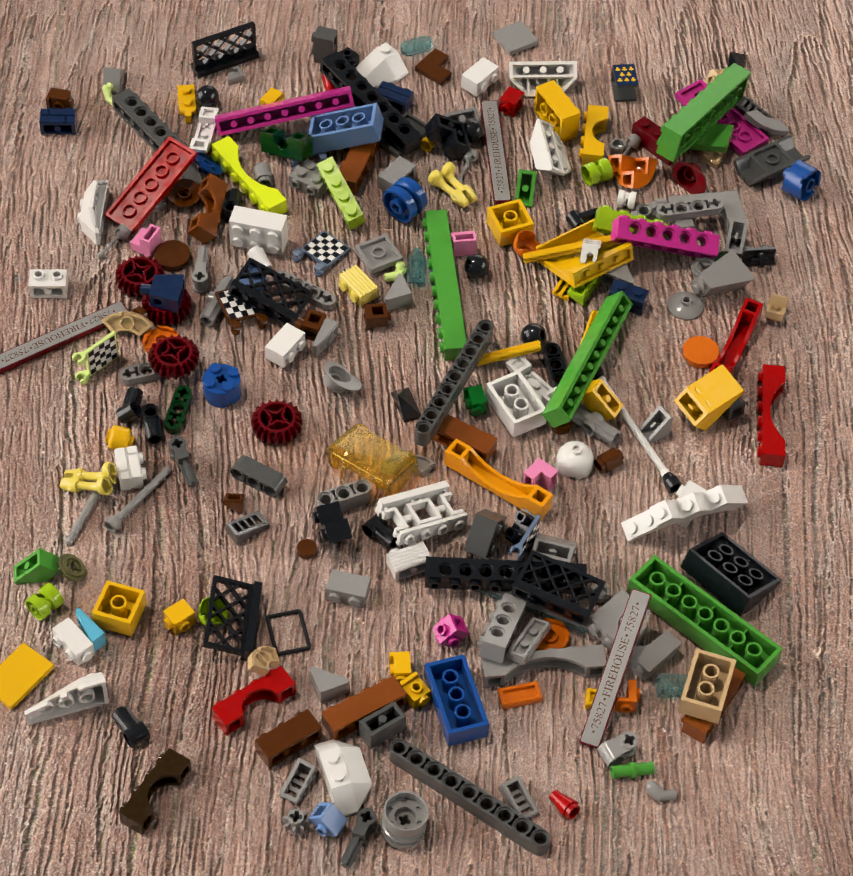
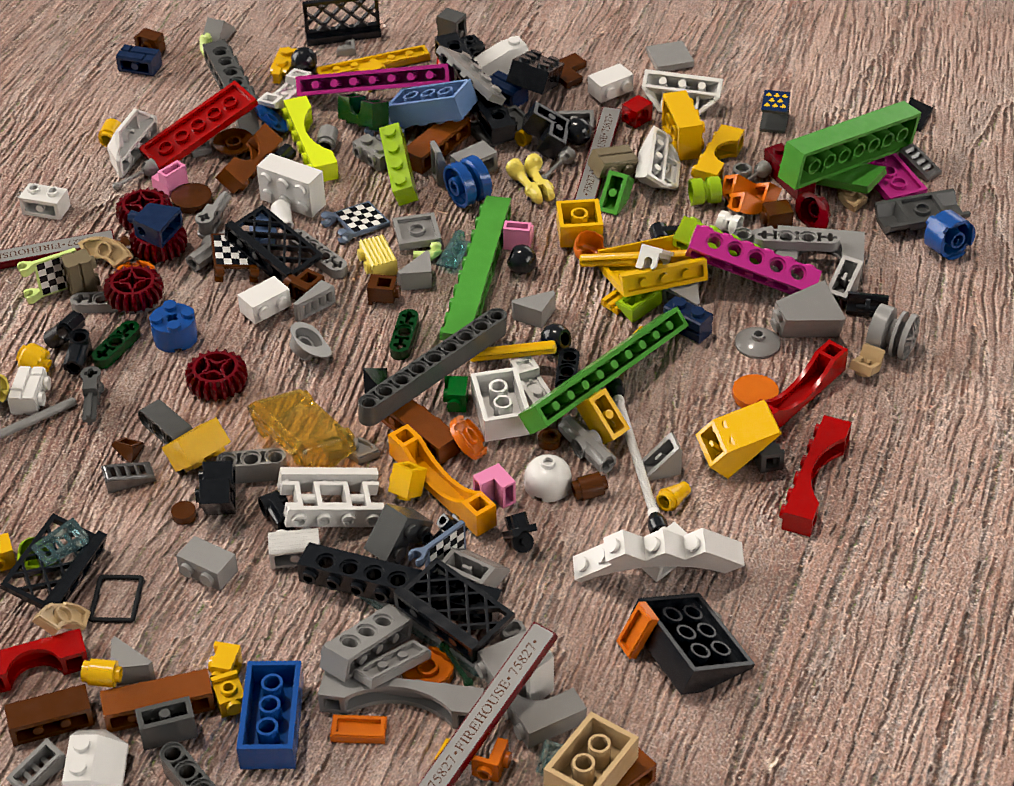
camera: 20 degrees right, 10 degrees down
(70, 202) = (108, 130): none -> yellow brick
(121, 351) = (80, 272): none -> dark tan brick
(241, 586) = (68, 527): none -> clear light blue slope
(257, 91) = (389, 59): none -> yellow tile
(296, 490) = (197, 446): none -> yellow brick
(318, 697) = (101, 672): none -> yellow brick
(372, 187) = (437, 163): none -> light grey slope
(373, 95) = (472, 71): none -> light grey wing
(406, 360) = (406, 341): none -> dark green beam
(416, 46) = (556, 48): clear light blue tile -> none
(417, 79) = (535, 72): none -> black brick
(450, 630) = (303, 633): dark pink brick -> none
(472, 485) = (407, 480): none -> yellow brick
(503, 438) = (468, 437): none -> orange tile
(504, 310) = (534, 309): none -> light grey slope
(513, 157) = (612, 158): none -> dark tan brick
(574, 509) = (518, 530): none -> black hips
(583, 640) = (445, 649): none -> clear green hinge
(661, 185) = (776, 214): none -> reddish brown brick
(673, 456) = (671, 497): none -> yellow cone
(696, 568) = (637, 630): none -> orange tile
(705, 619) = (632, 690): bright green brick -> none
(763, 122) = (923, 170): light grey tile -> none
(789, 279) = (897, 333): none -> light grey wheel

